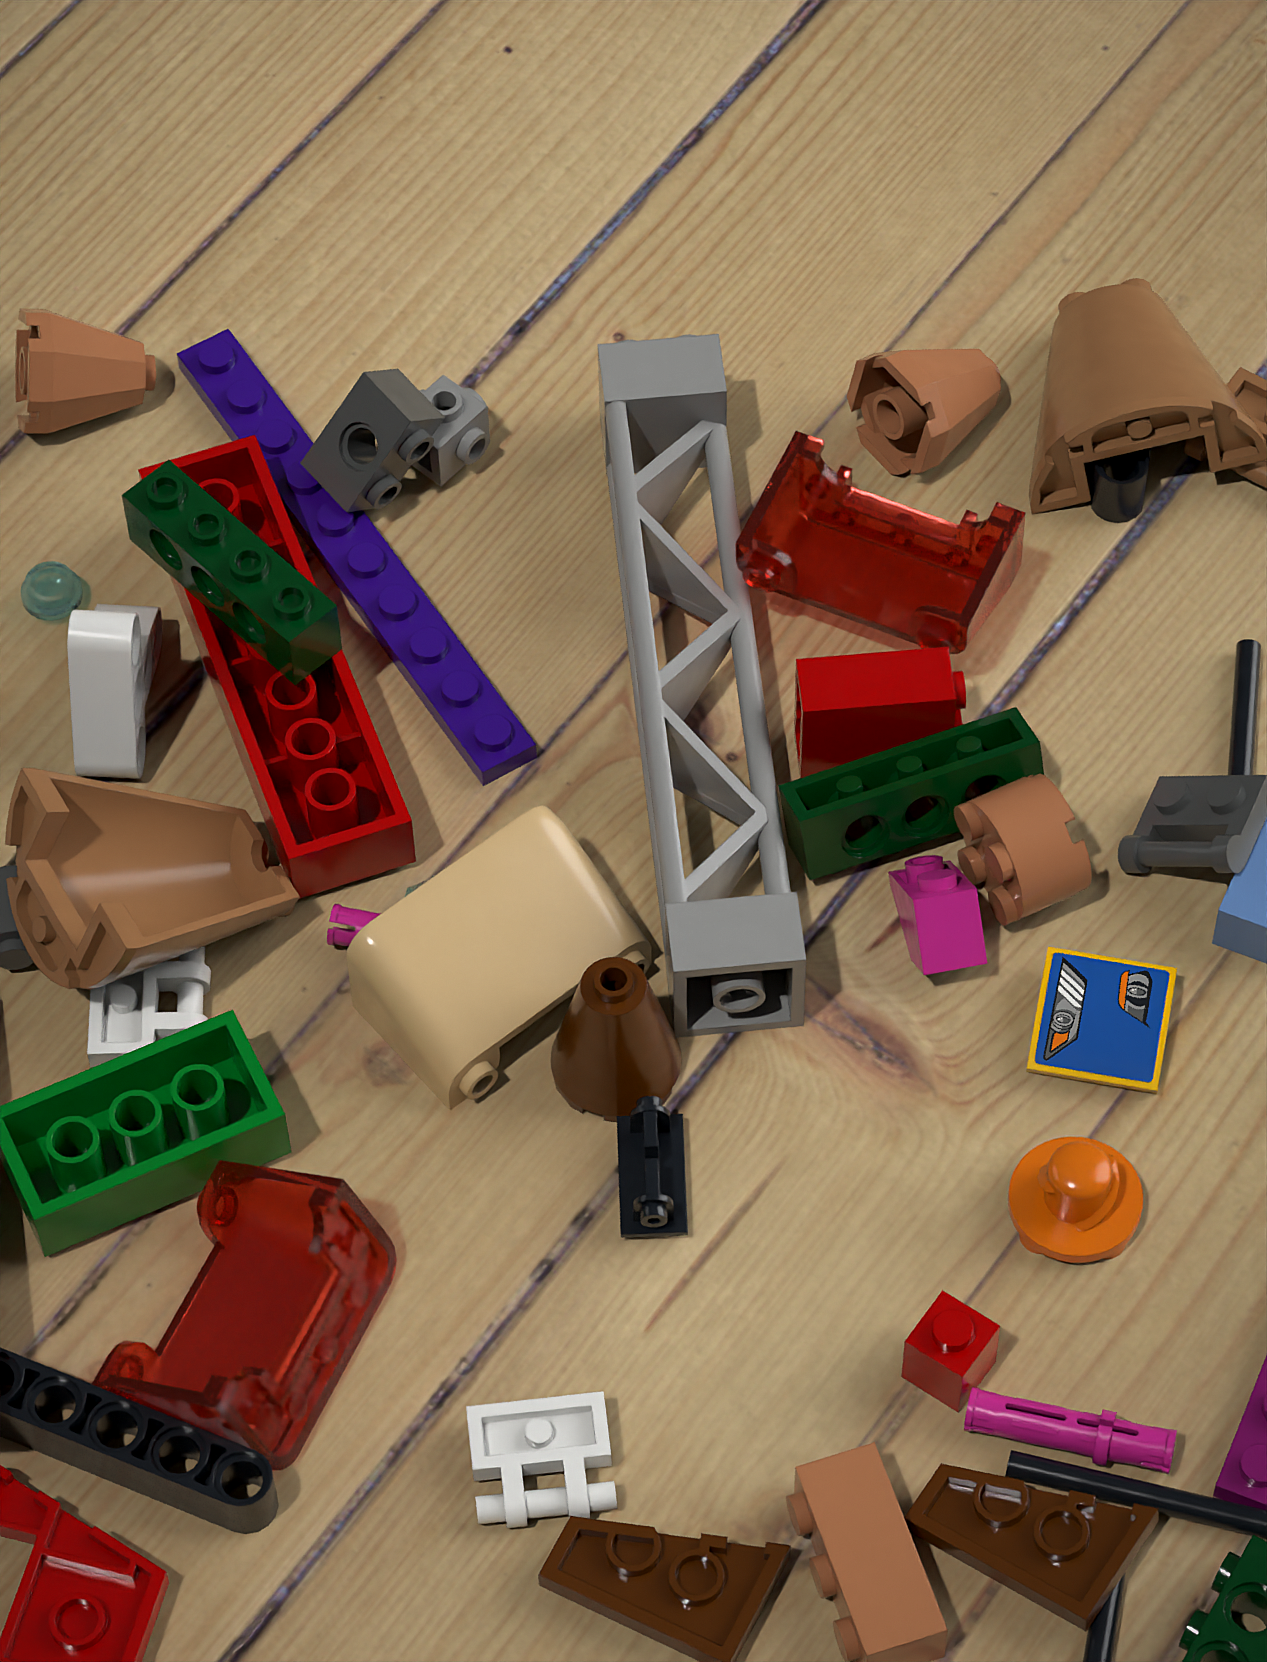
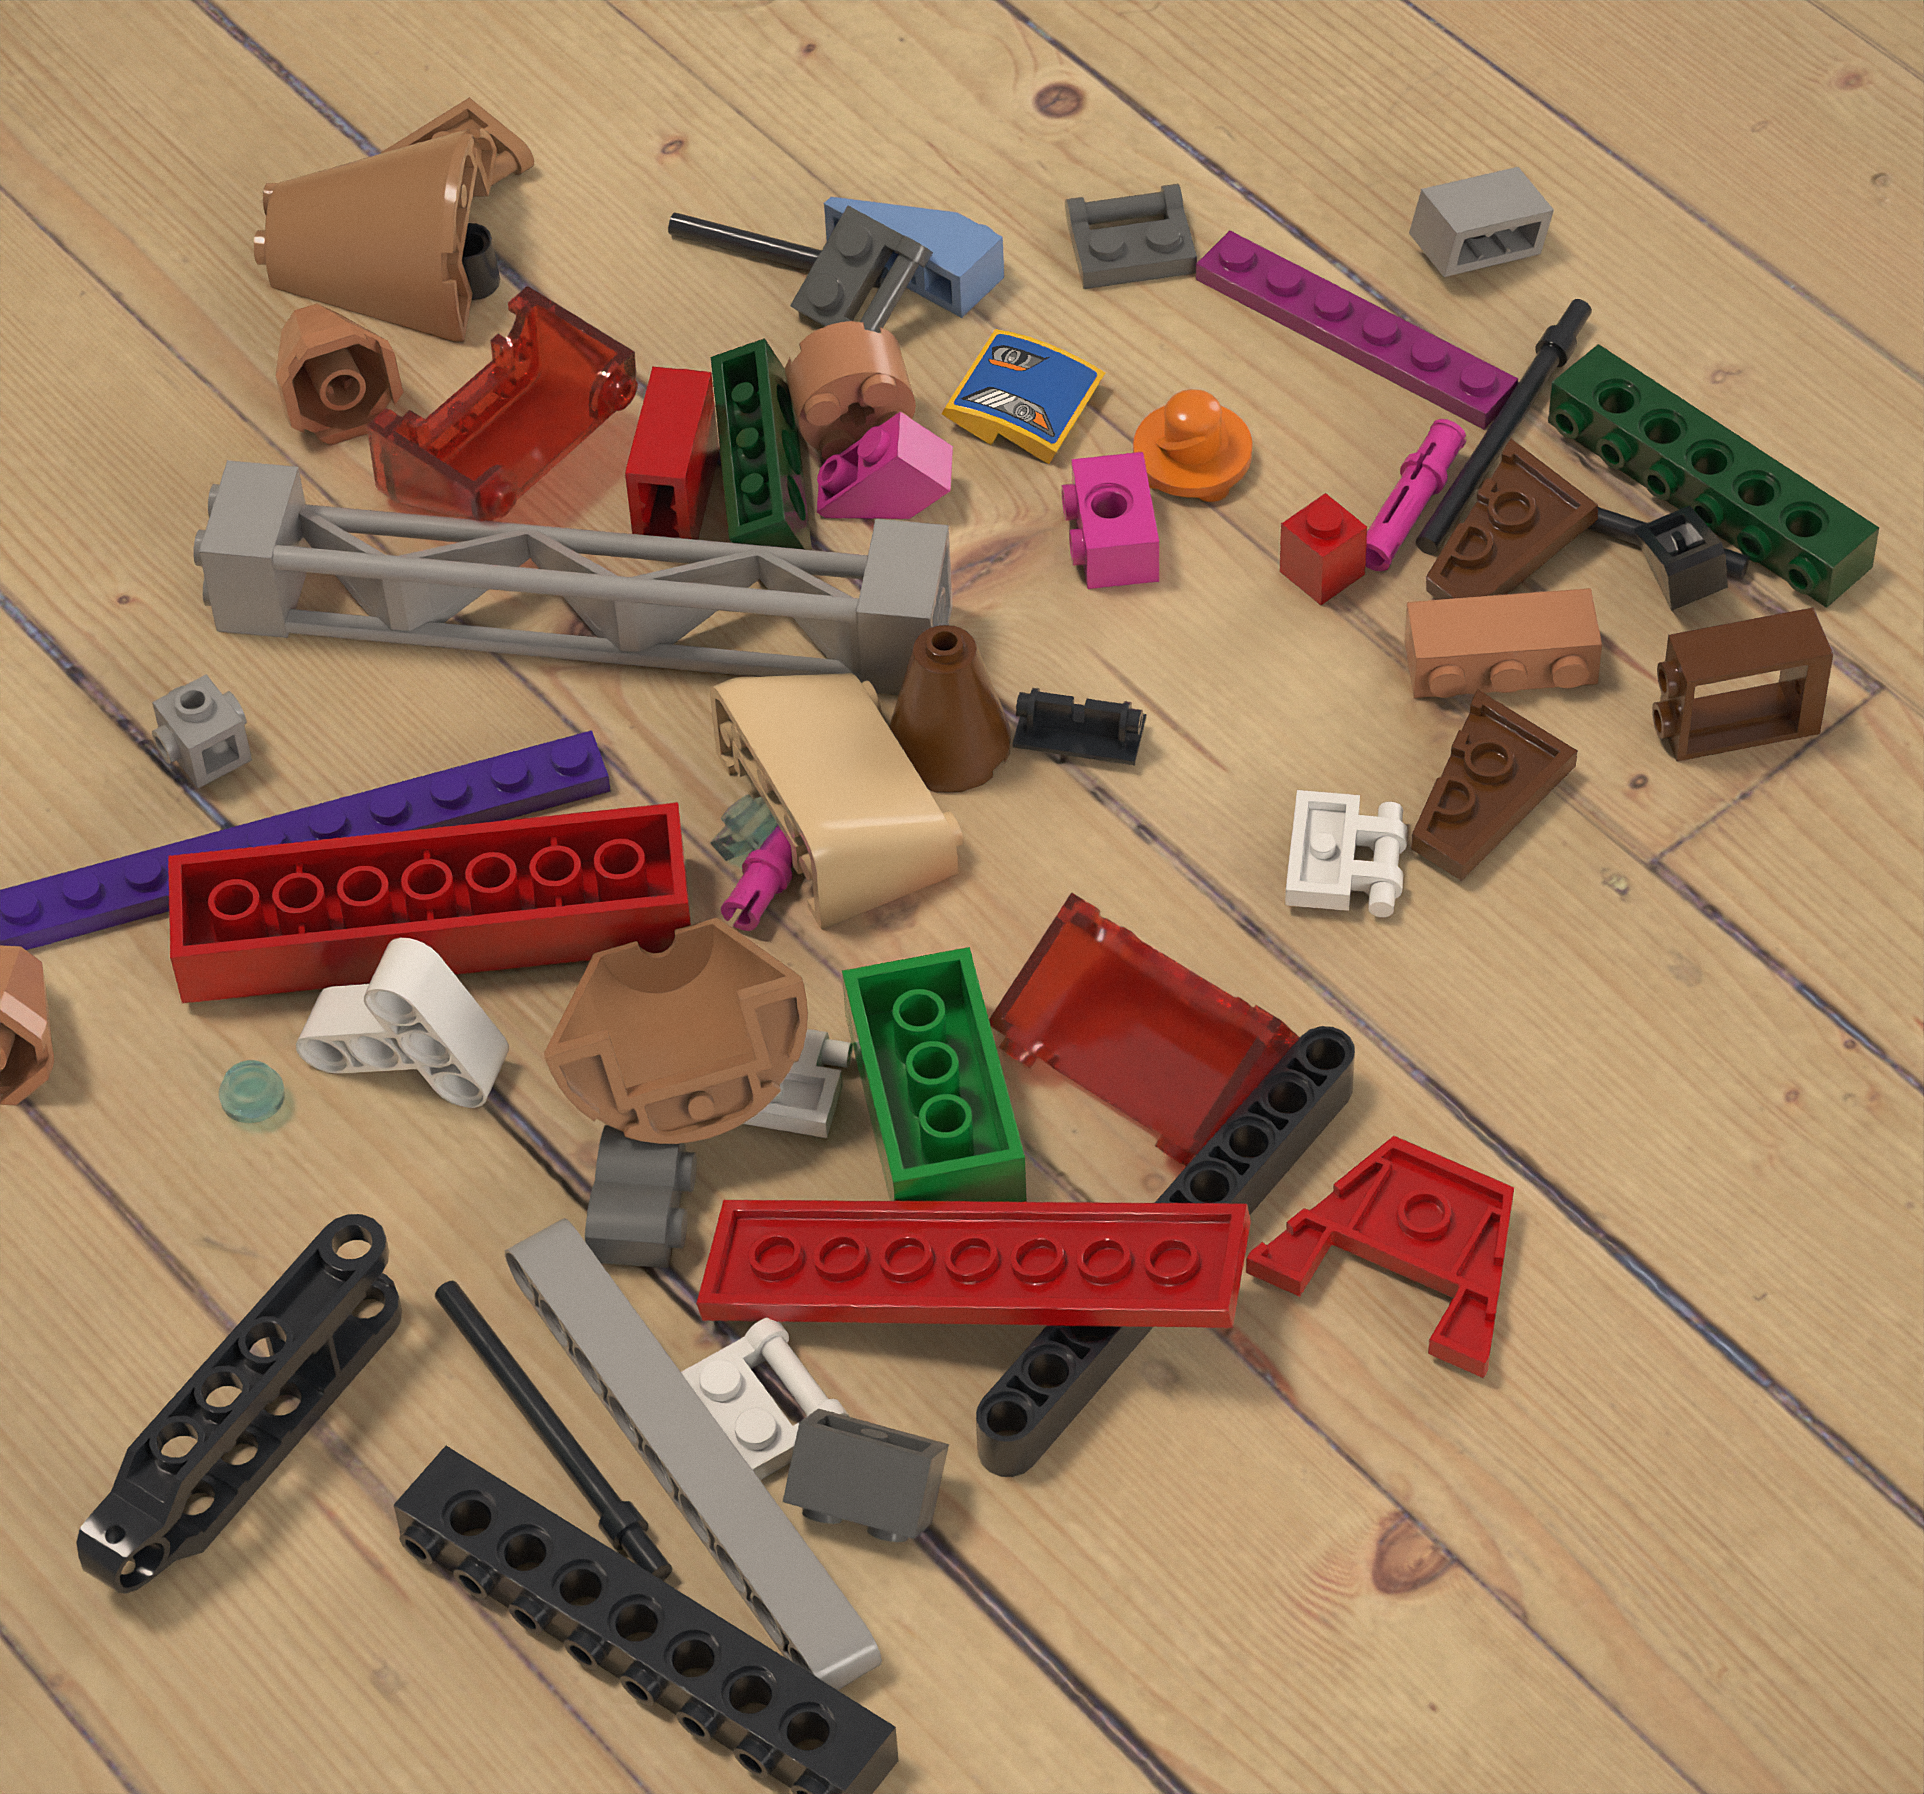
camera: 75 degrees left, 5 degrees down
(232, 572) = (353, 876): dark green brick -> none
(345, 453) = (187, 741): dark grey brick -> none
(919, 1169) = (1113, 520): none -> dark pink brick

